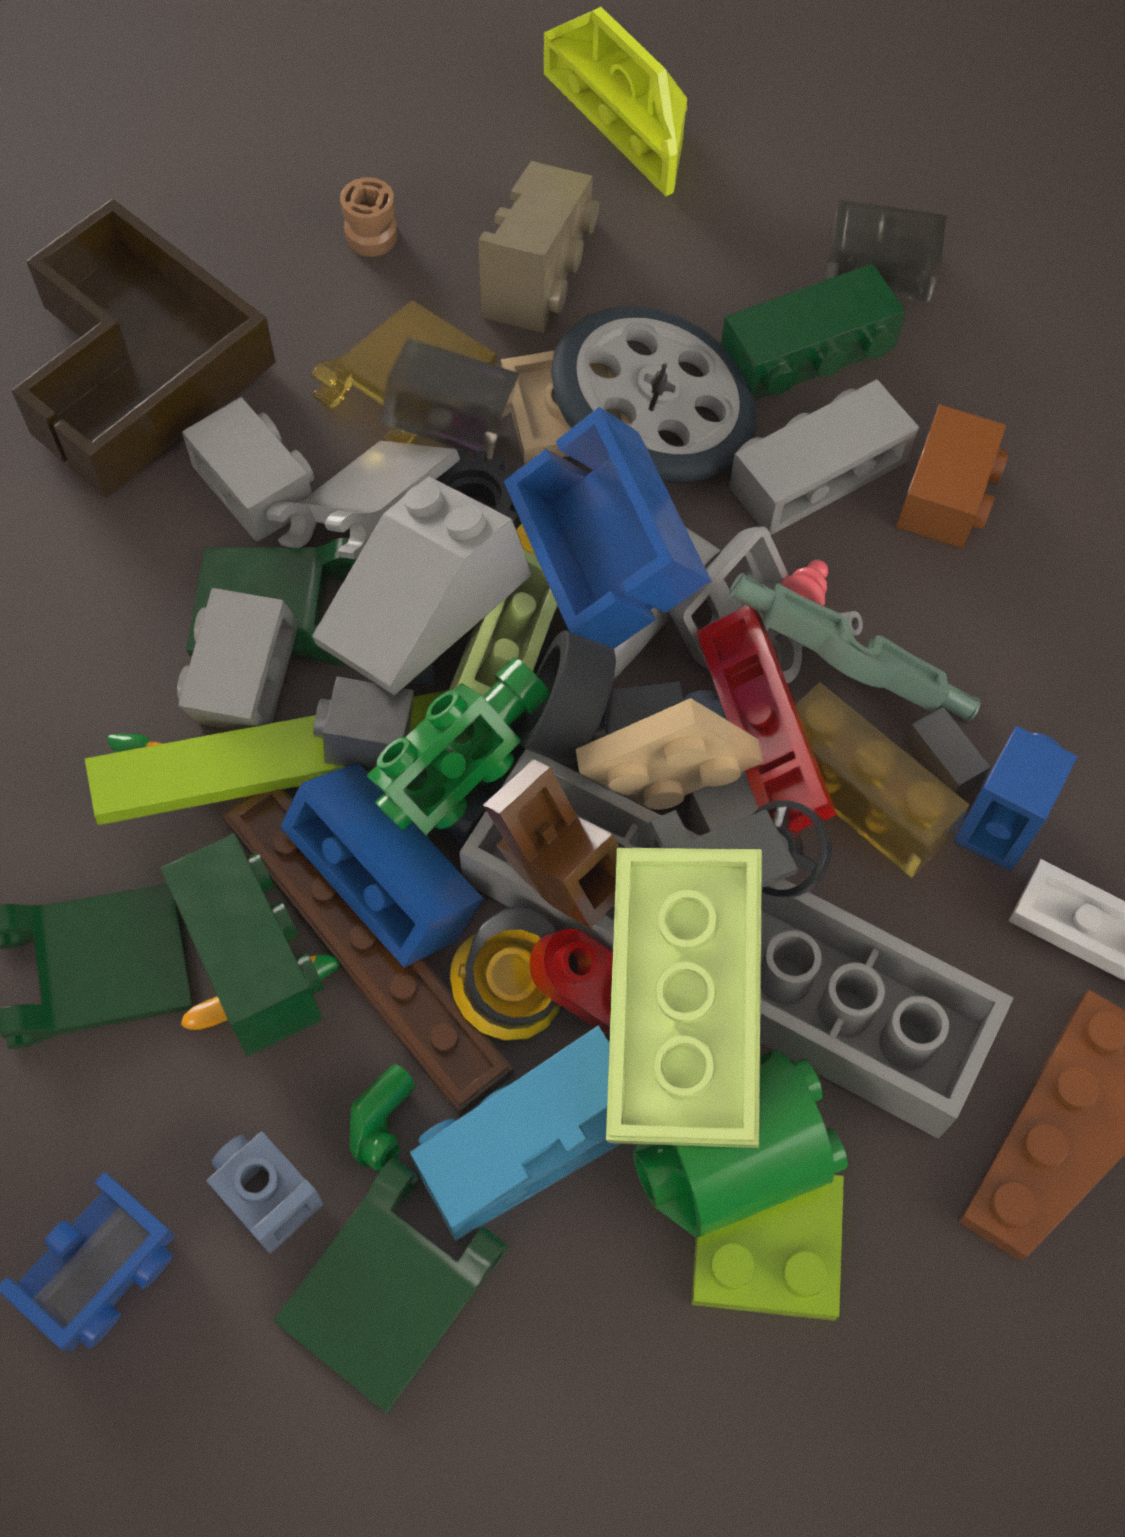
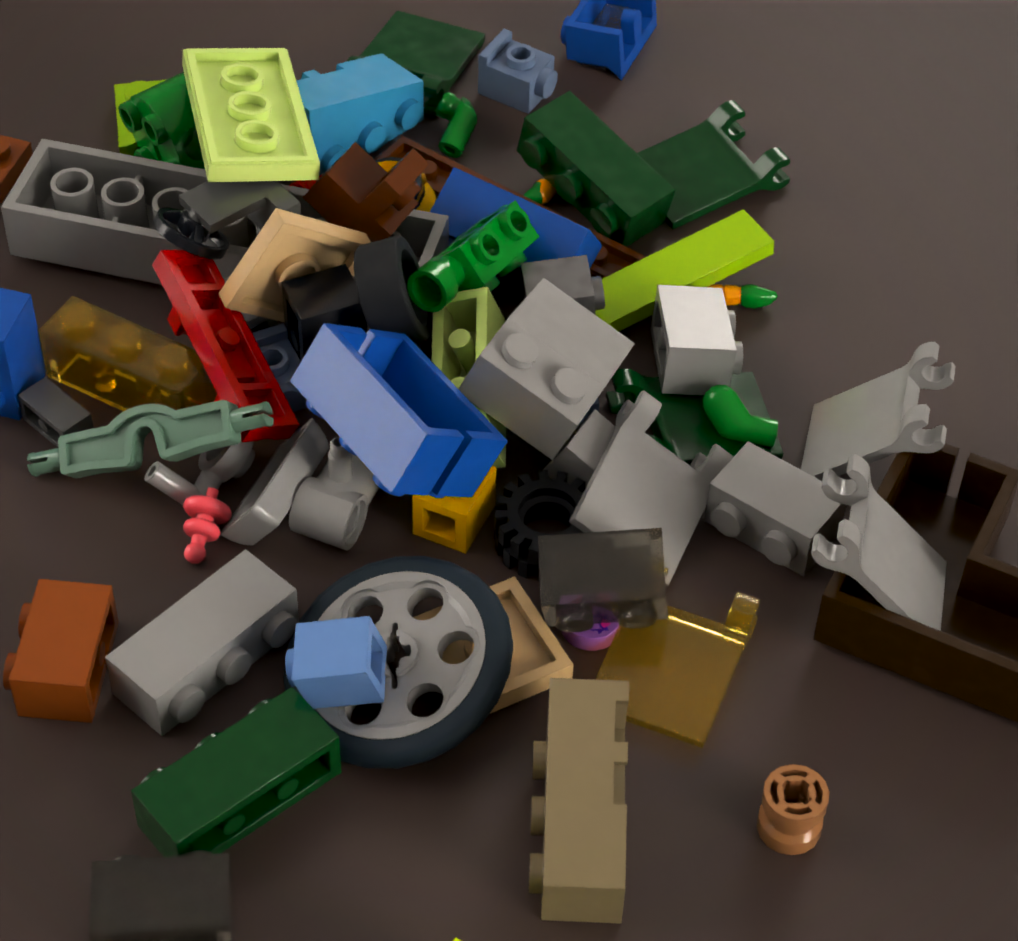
camera: 165 degrees right, 15 degrees down
(113, 504) = (878, 417): none -> light grey flag
(191, 329) = (881, 549): none -> light grey flag
(240, 564) = (733, 419): none -> green arm
(713, 369) = (338, 662): none -> medium blue brick

